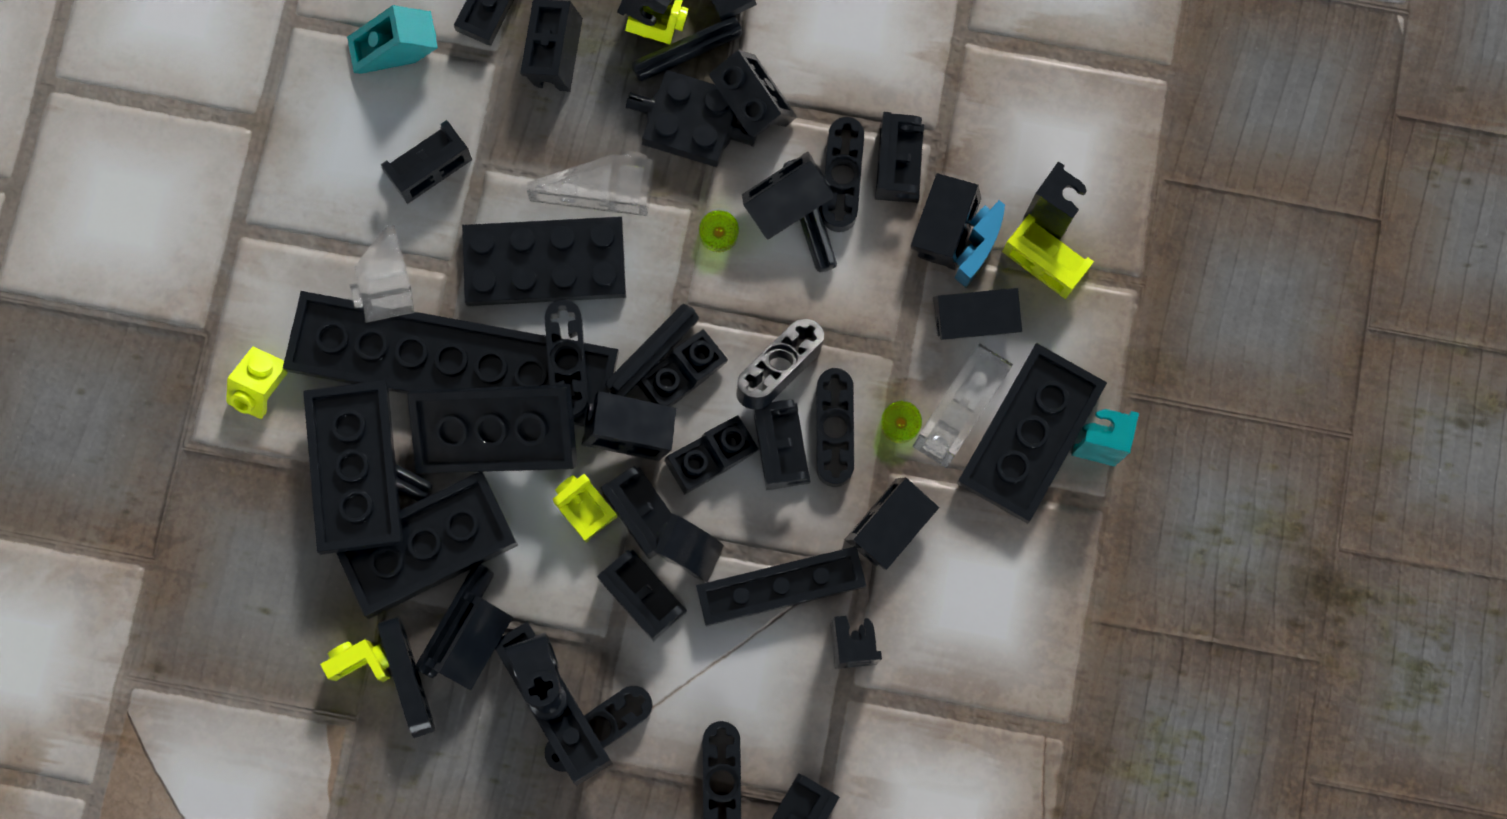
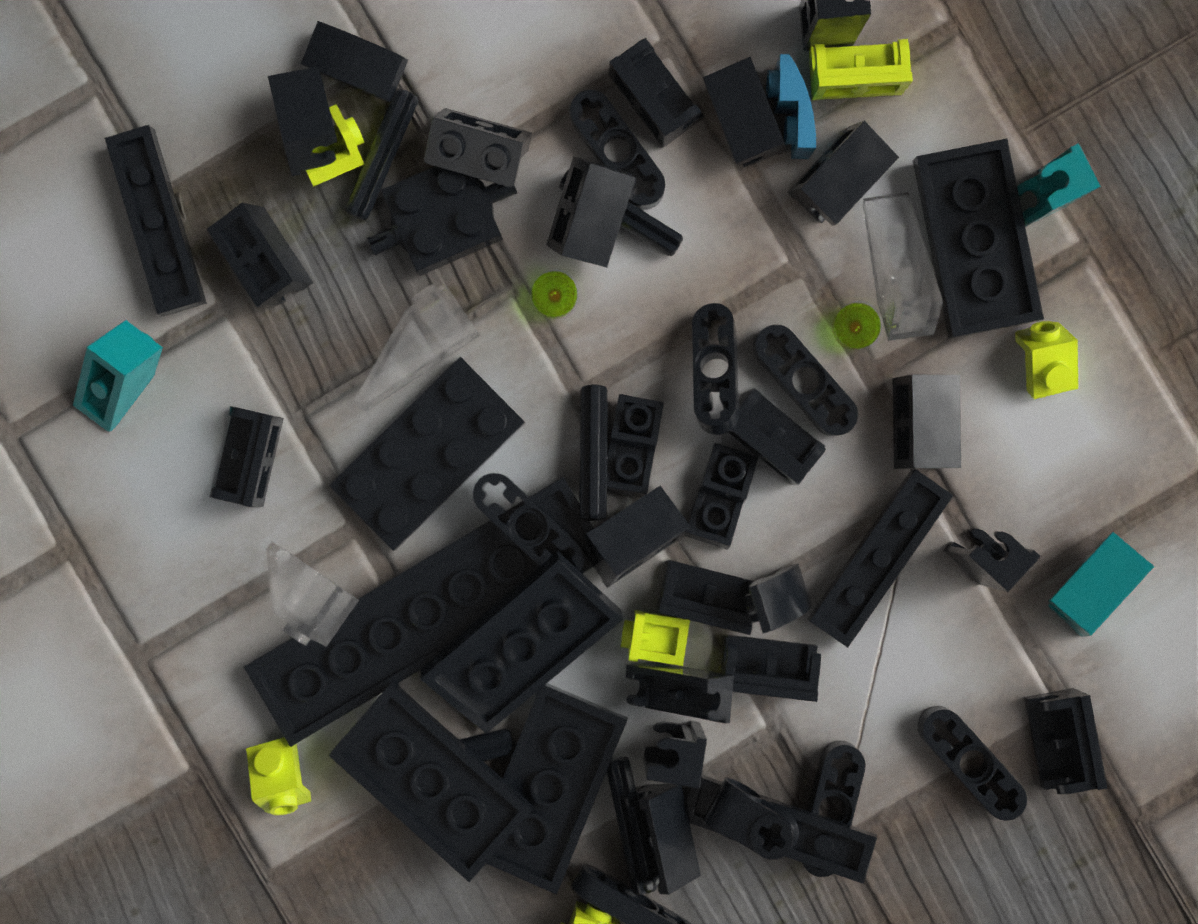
camera: 40 degrees left, 10 degrees up
(533, 594) = (679, 757): none -> black hinge
(568, 553) = (682, 690): none -> black hinge
(913, 734) = (1100, 585): none -> teal hinge
(1011, 553) = (1049, 358): none -> neon yellow bracket

